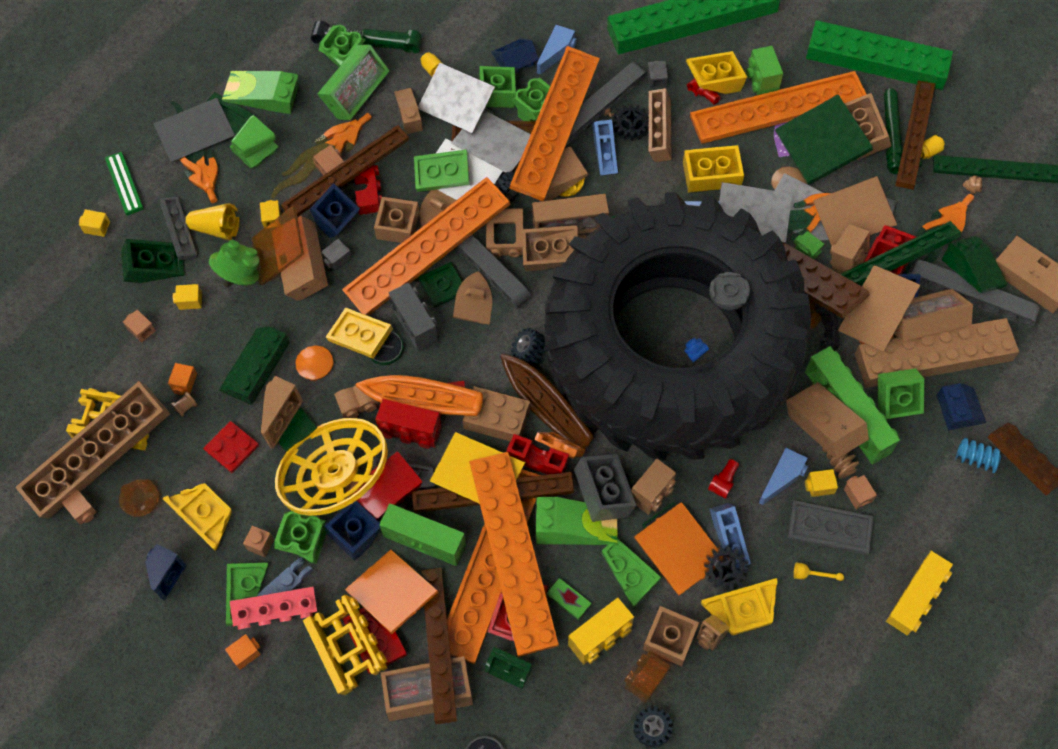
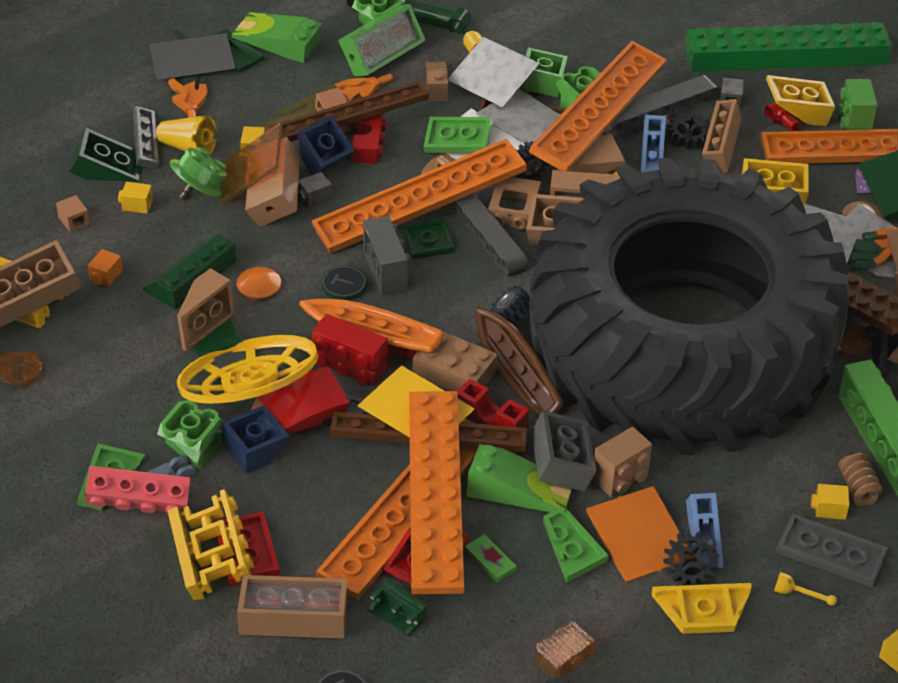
camera: 10 degrees right, 20 degrees down
(94, 223) = (55, 116): yellow brick -> none
(124, 183) = (99, 90): green tile -> none
(163, 570) = (25, 432): dark blue slope -> none
(184, 404) = (99, 292): medium nougat bush -> none
(202, 512) = (85, 393): yellow wing -> none
(231, 447) = (138, 341): red plate -> none
(243, 651) = (89, 530): orange brick -> none
(253, 142) = (254, 75): bright green piece -> none
(258, 541) = (140, 430): nougat brick -> none
(354, 401) = (293, 322): medium nougat brick -> none
(359, 333) = (319, 261): yellow plate -> none
(391, 591) = (281, 505): orange piece -> none
(396, 219) = (392, 166): medium nougat brick -> none
(423, 534) = (334, 456): bright green brick -> none
(439, 651) = (319, 564): reddish brown plate -> none
(473, 300) = (460, 258): medium nougat shield -> none
(516, 54) = (578, 49): dark blue slope -> none
(555, 47) = (616, 47): medium blue slope -> none
(559, 443) = (534, 410): orange wing -> none
(601, 631) = (519, 588): yellow brick -> none
(670, 636) = (605, 611): medium nougat brick -> none
(695, 349) = (701, 300): blue plate -> none
(711, 632) = (656, 616): medium nougat slope -> none
(722, 483) = (710, 479): red pin -> none
(729, 291) = (755, 257): dark grey tile -> none
(786, 473) = (786, 485): medium blue slope -> none
(808, 245) = (872, 272): bright green window -> none
(827, 420) = (851, 433): medium nougat brick -> none
(859, 491) = (877, 519): nougat brick -> none

